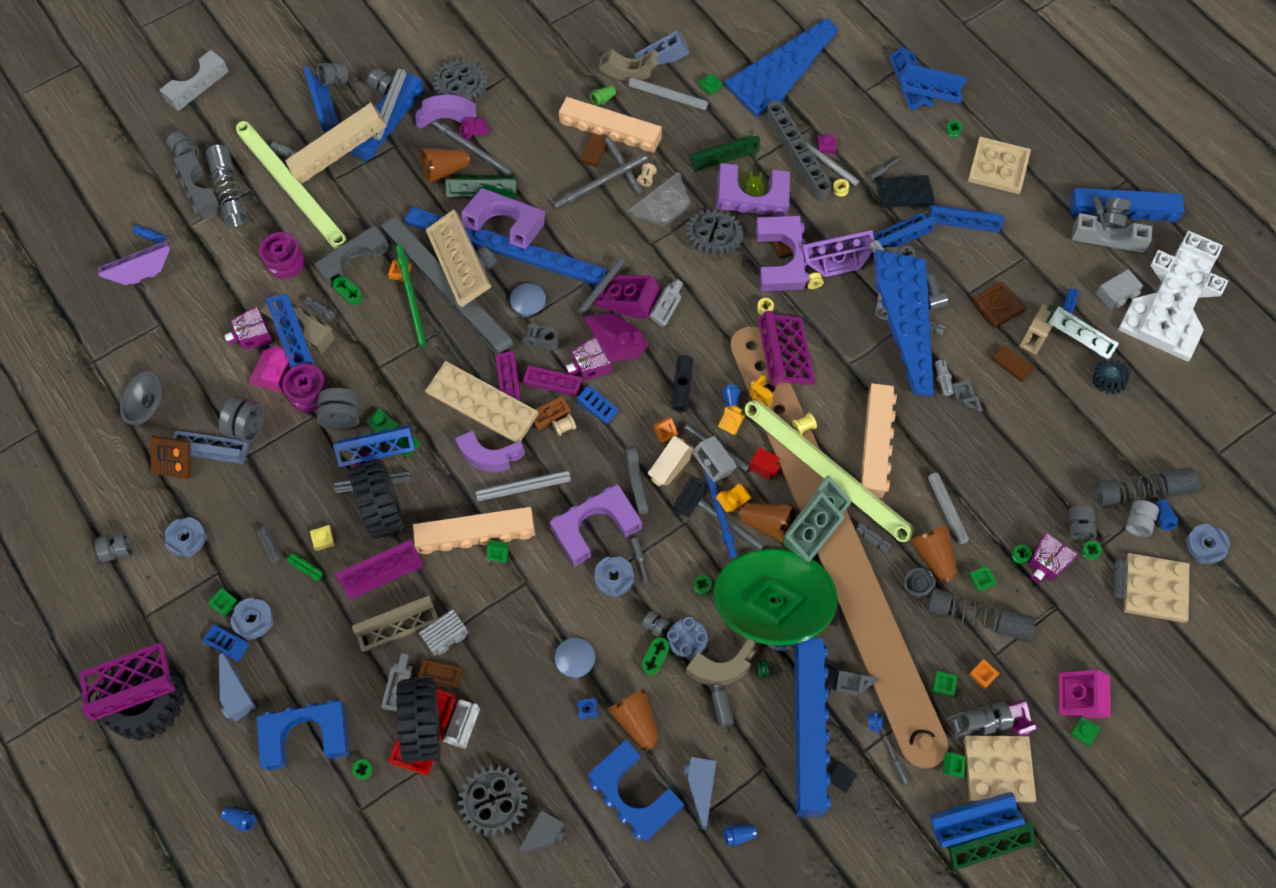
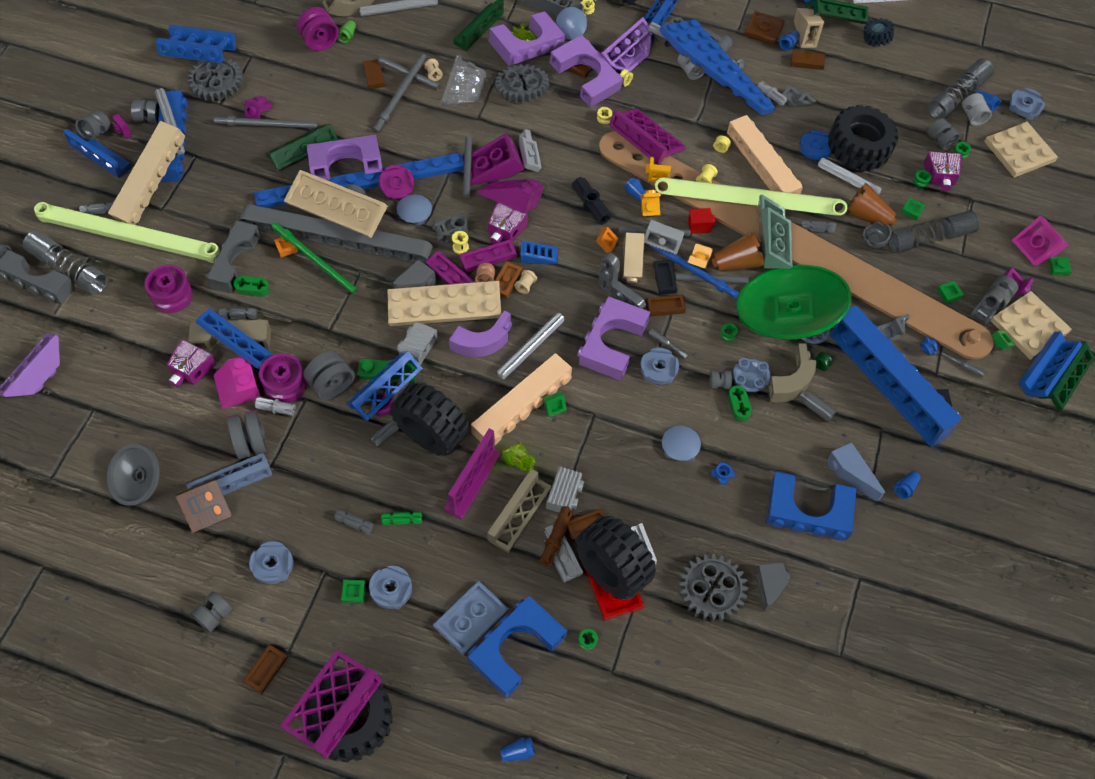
camera: 40 degrees left, 5 degrees down
(119, 618) = (265, 669): none -> reddish brown tile
(149, 234) = (19, 342): blue axle -> none
(233, 693) = (430, 656): sand blue slope -> none
(236, 648) = (392, 628): blue slope -> none
(285, 408) = (275, 406): none -> light grey axle
(291, 686) = (470, 618): none -> sand blue tile
(322, 538) = (396, 487): light yellow plate -> none
(355, 86) = (121, 126): none -> magenta plate
(401, 666) = (553, 544): none -> reddish brown pin
(429, 577) = (519, 457): none -> clear neon green piece
(432, 424) = (418, 341): none -> light grey brick
(442, 162) = (252, 145): dark orange cone -> none
(445, 107) = (219, 101): medium lavender arch -> none
(467, 29) = (196, 43): none -> blue fence
(476, 364) = (416, 276): none -> dark grey slope
(530, 266) = (396, 182): none -> magenta tile
(534, 397) = (485, 273): none -> nougat wheel
(537, 354) = (457, 243): none -> light yellow bush
(574, 80) = (317, 29): none -> magenta wheel
(610, 124) = (356, 50): light nougat brick -> none
(637, 719) = (768, 452): dark orange cone -> none
(668, 523) = (666, 305): none -> reddish brown tile
(807, 197) = (572, 22): none -> sand blue dish
(850, 400) = (721, 144): none -> light yellow bush
(944, 456) = (815, 145): none -> blue tile
(983, 674) = (968, 269): orange plate -> none
(1003, 459) = (867, 123): none -> black tyre
(1010, 332) = (789, 40): none -> blue cone
(1120, 579) = (995, 157): dark grey axle -> none

